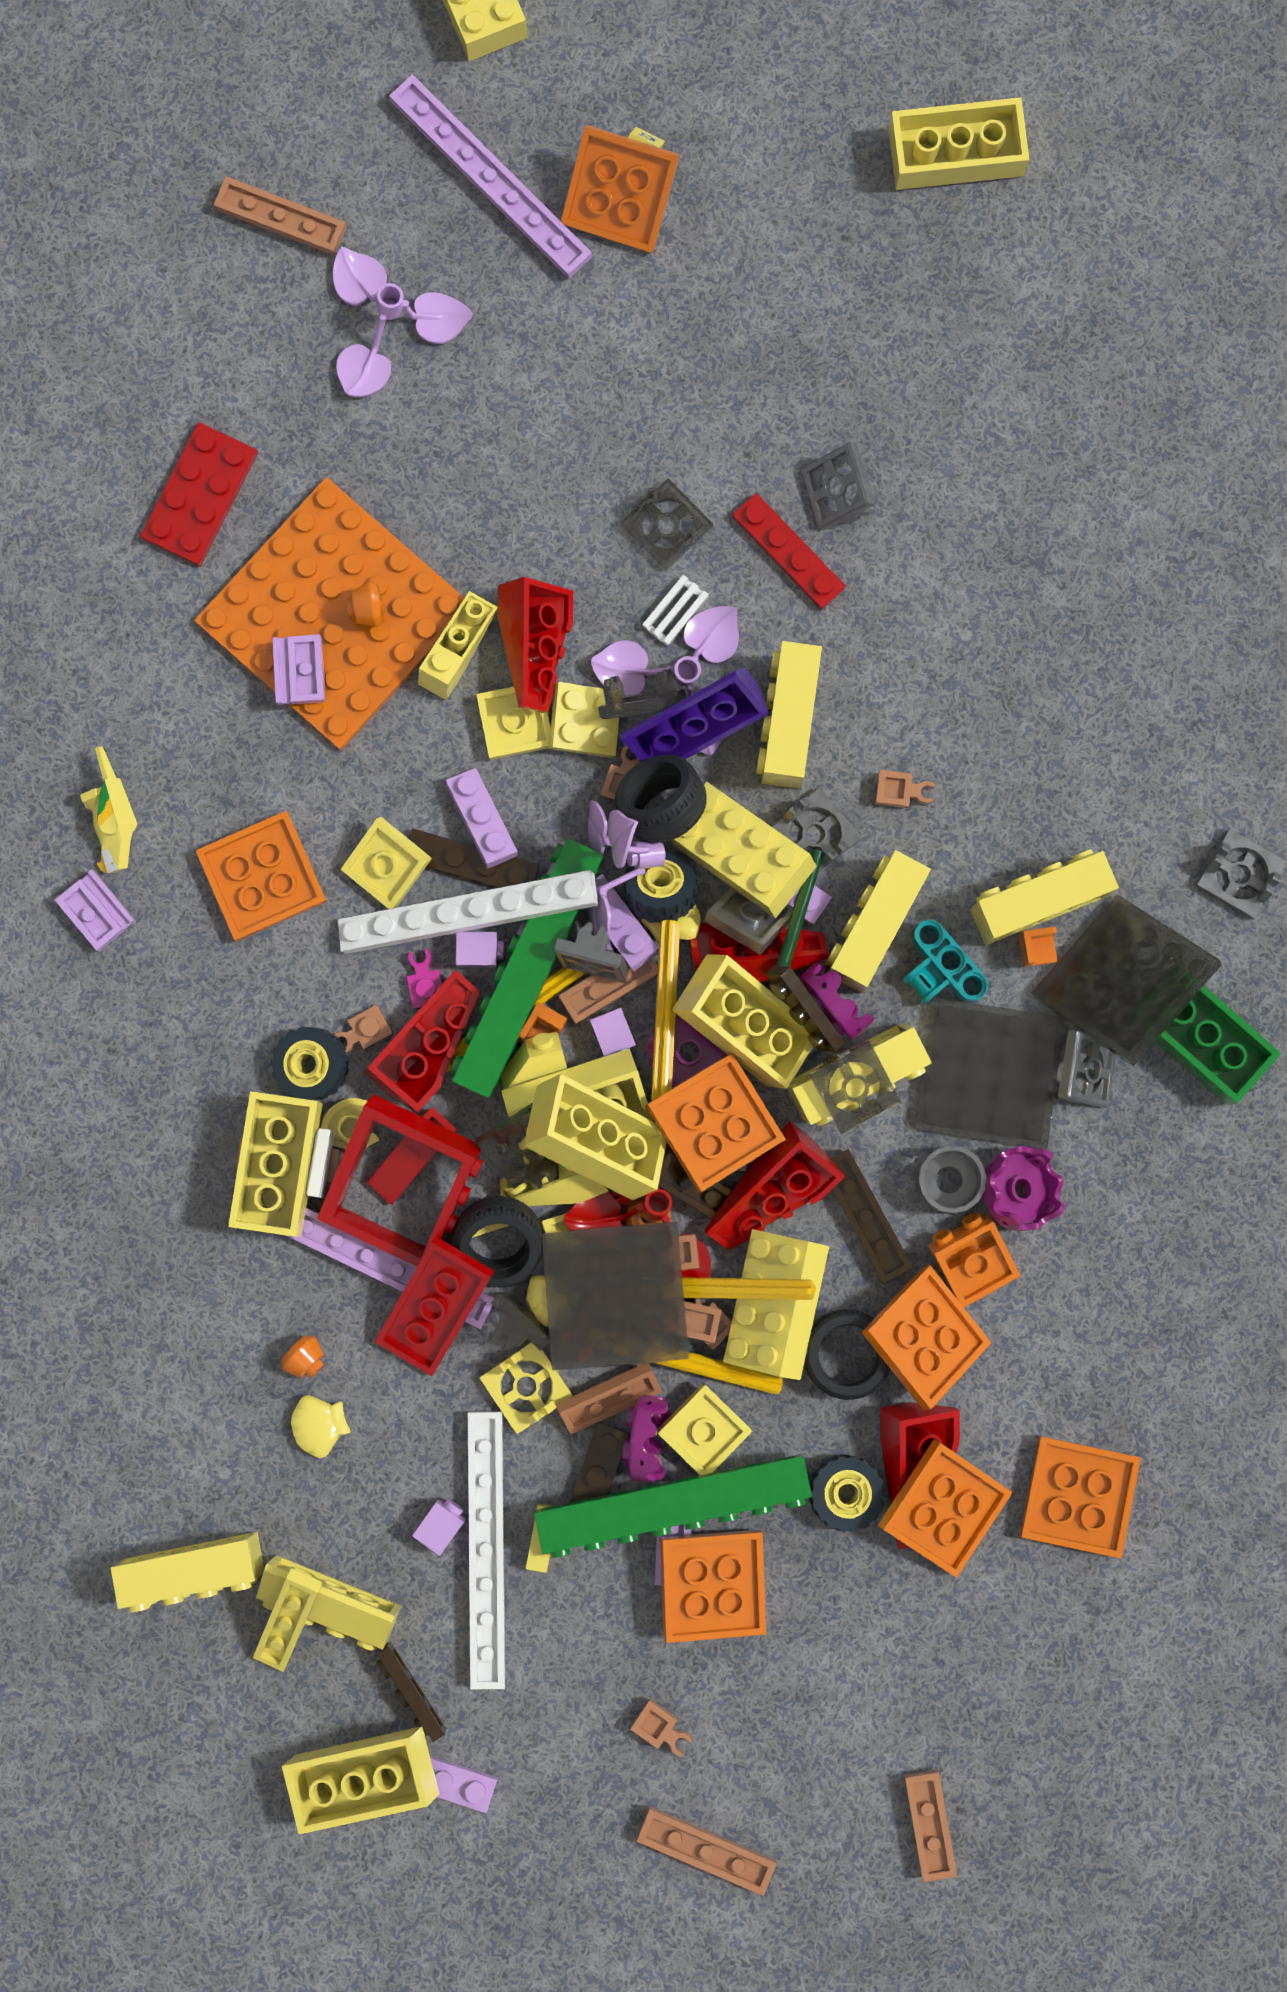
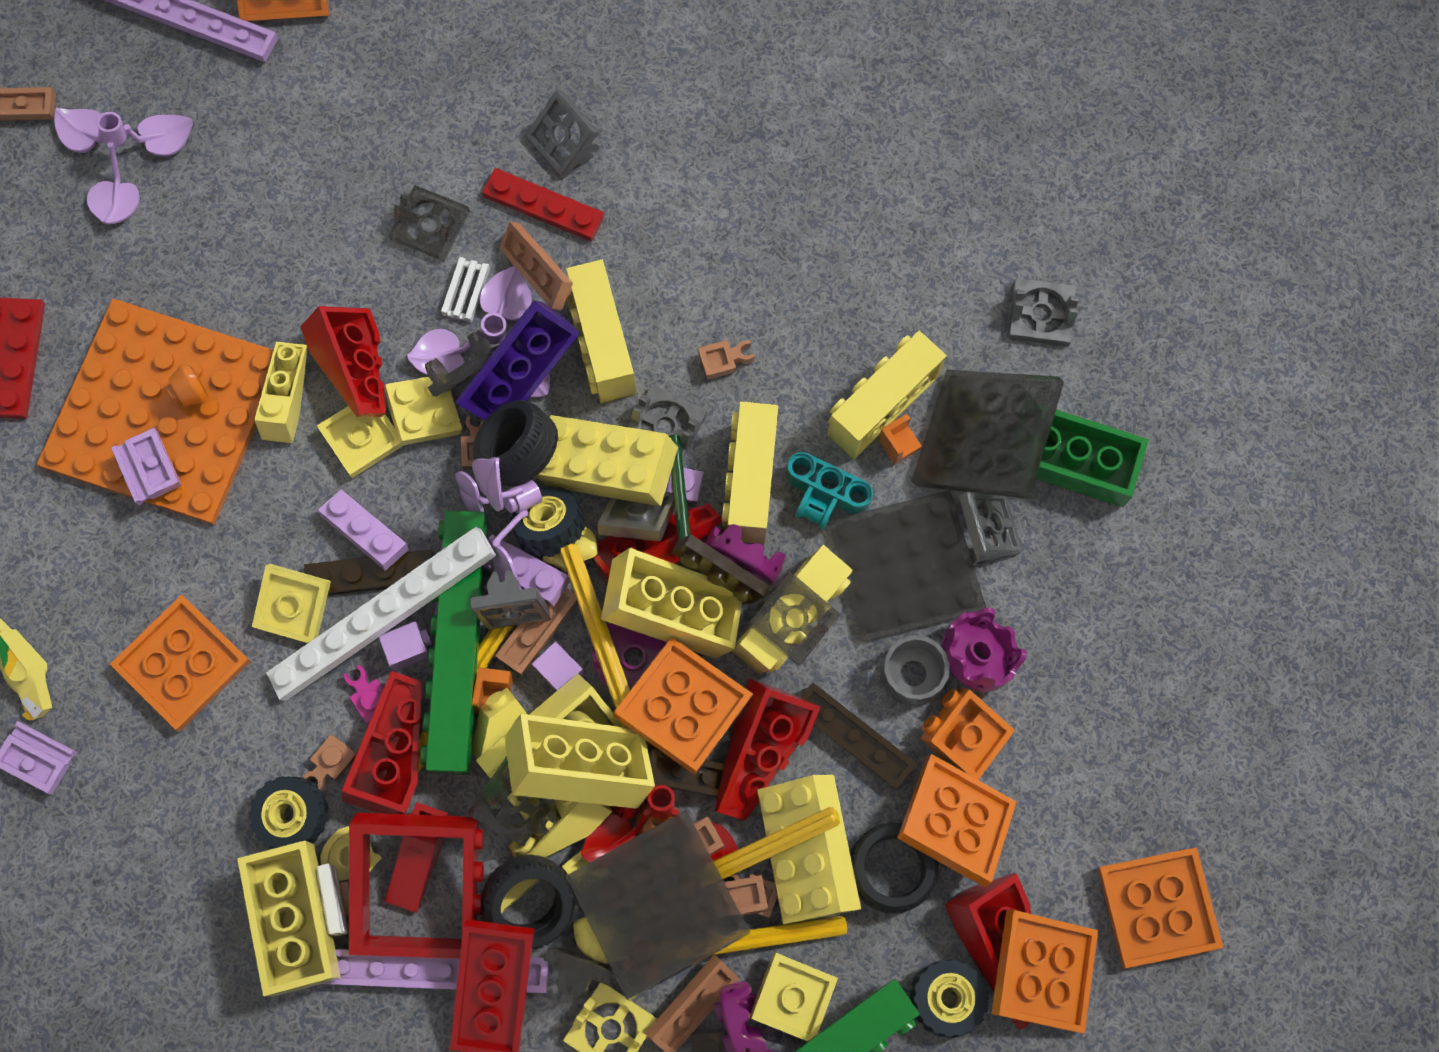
camera: 25 degrees left, 10 degrees down
(753, 621) = (536, 266): none -> nougat plate

